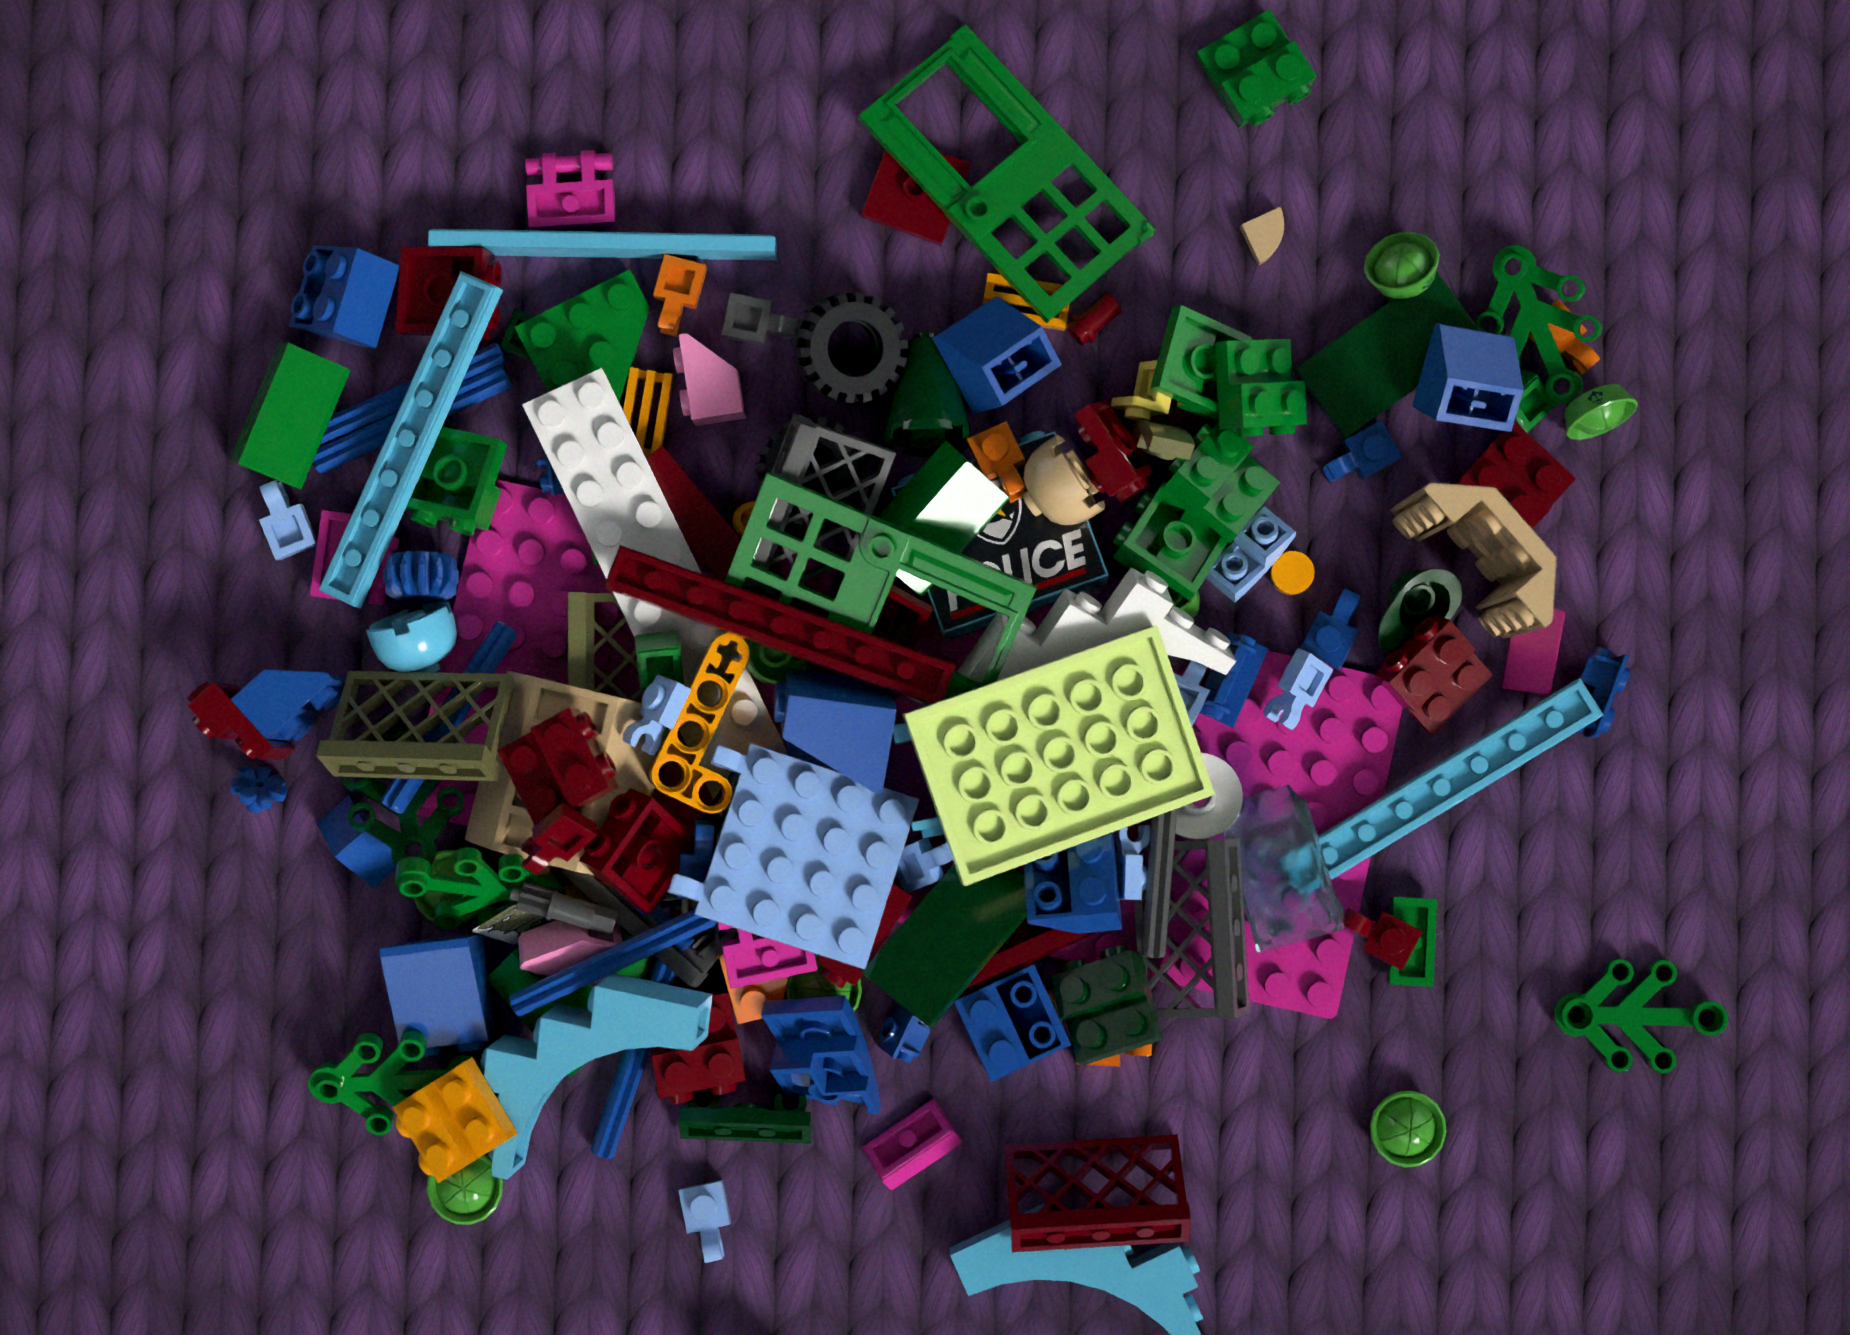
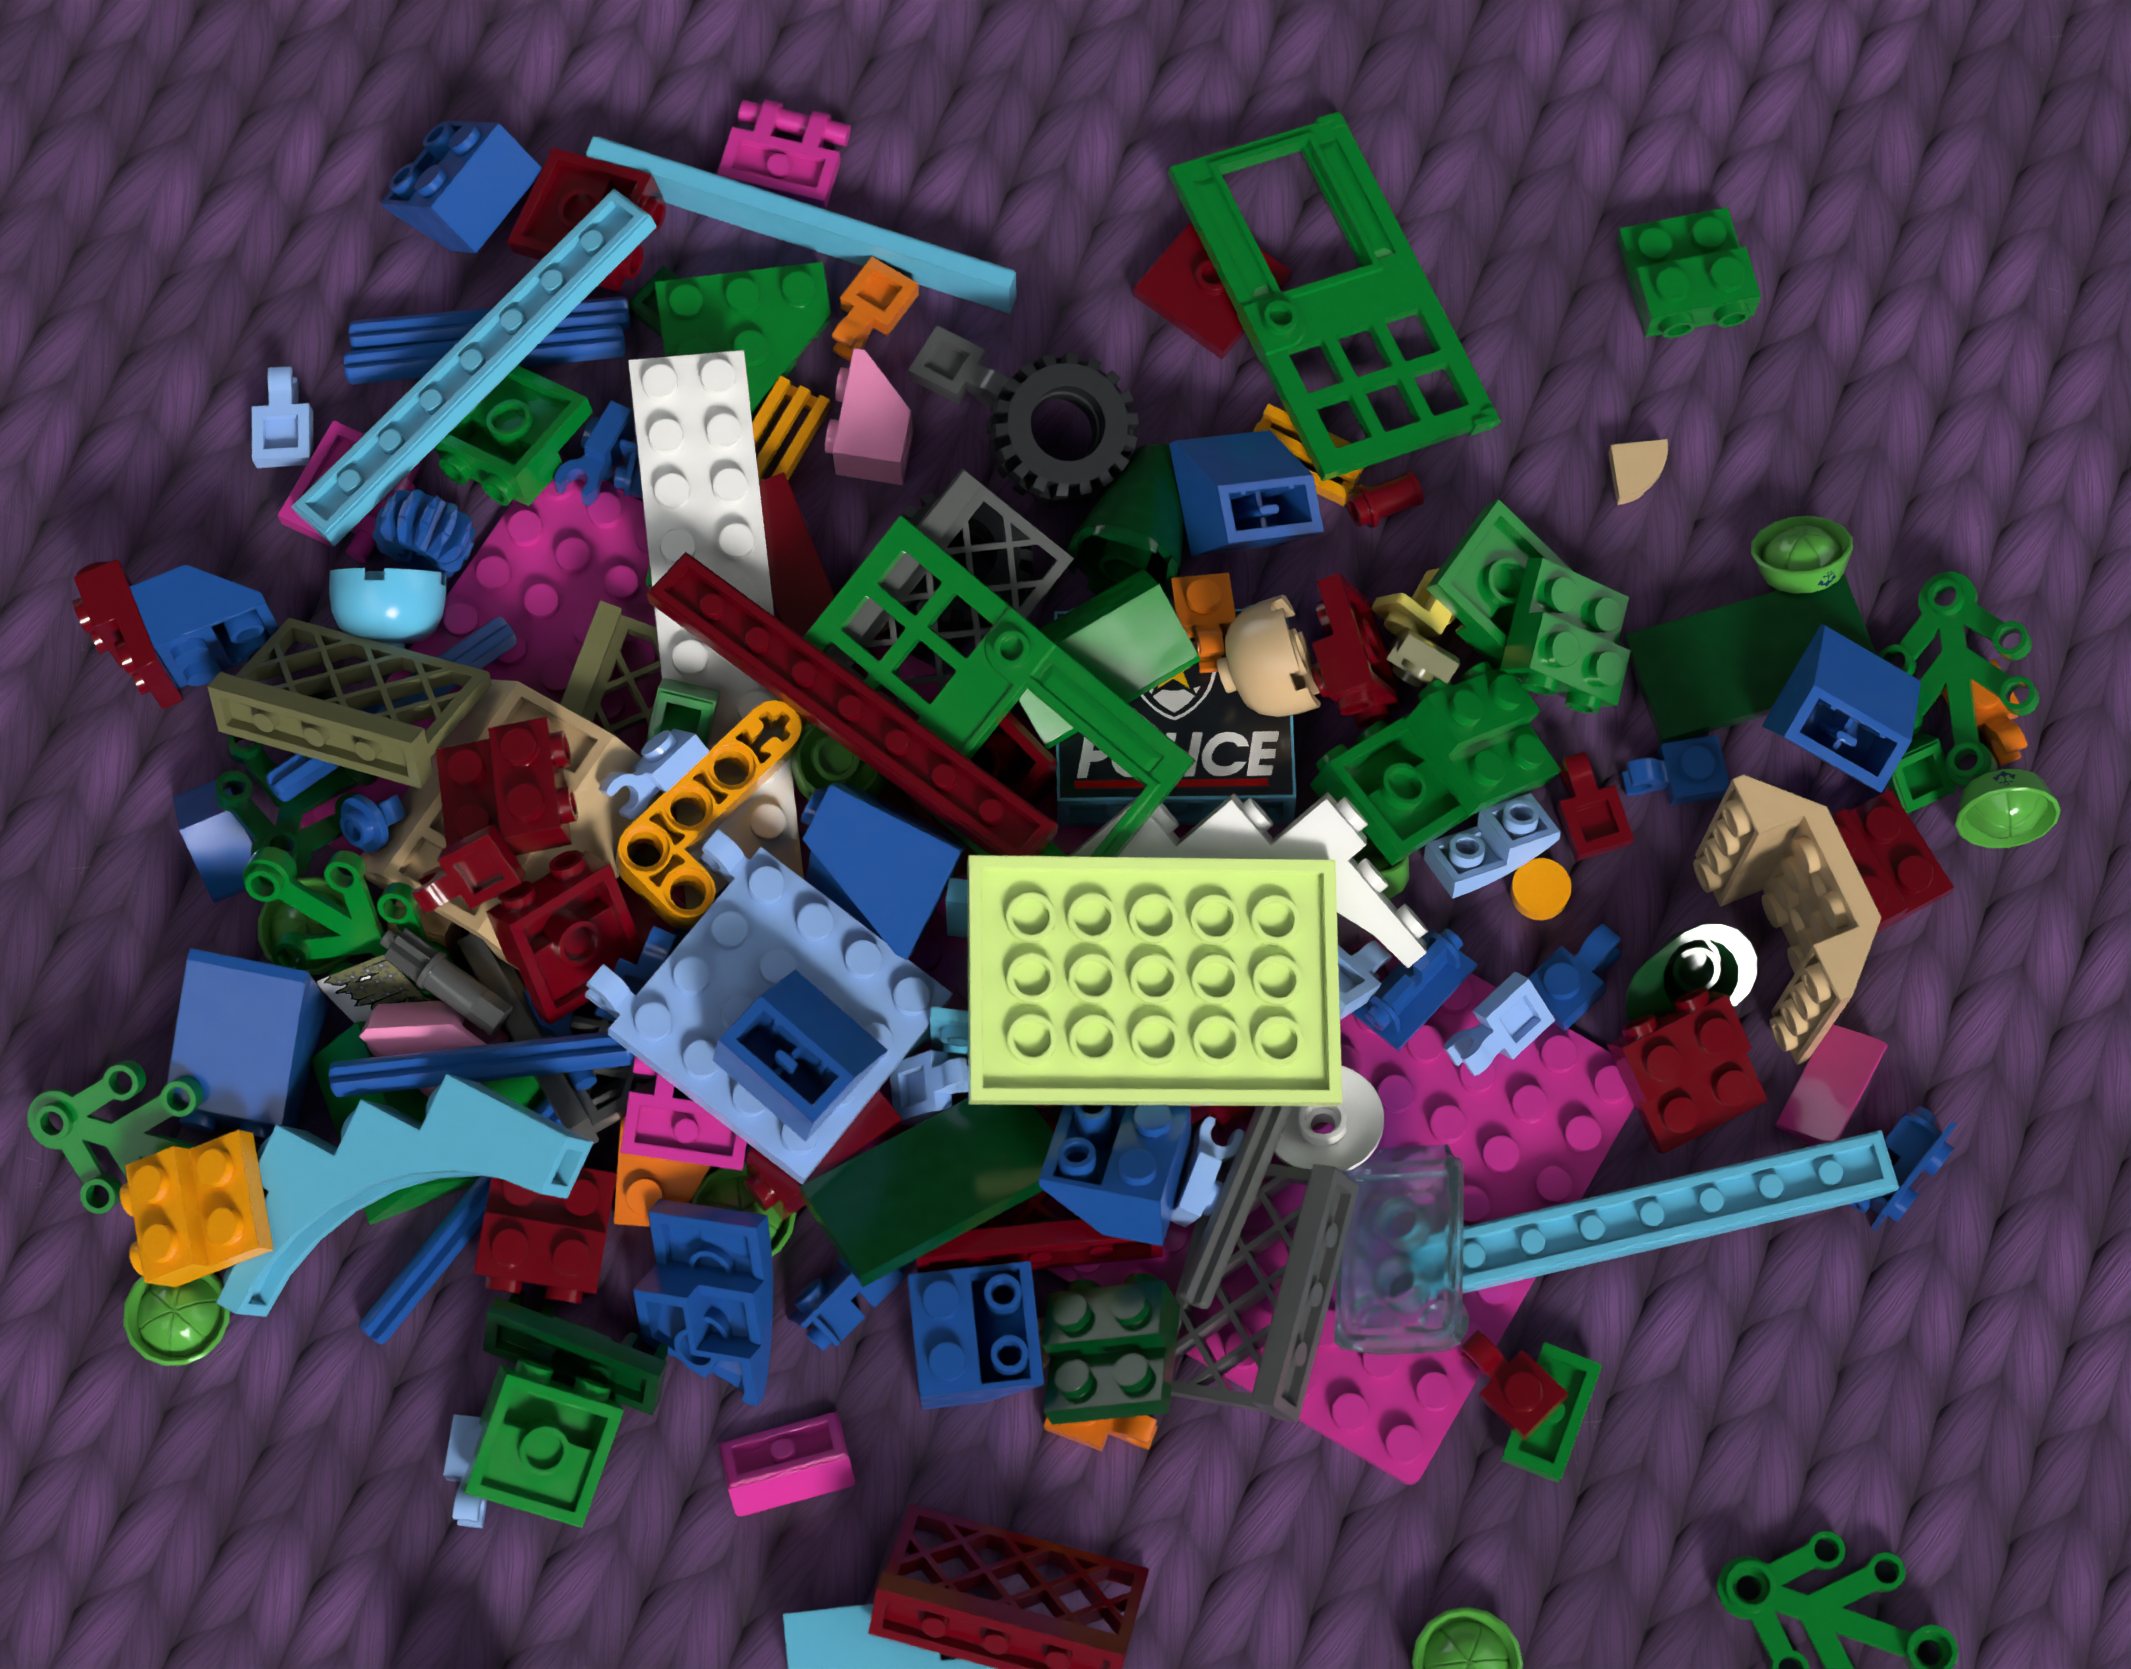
camera: 20 degrees right, 15 degrees down
(257, 788) = (117, 727): blue plant -> none
(290, 415) = (340, 298): green slope -> none
(465, 811) = (367, 822): none -> blue plate
(522, 463) = (601, 450): none -> blue plate
(747, 1193) = (543, 1442): none -> green plate
(835, 890) = (797, 1053): none -> blue slope
(1314, 510) = (1591, 817): none -> dark red plate

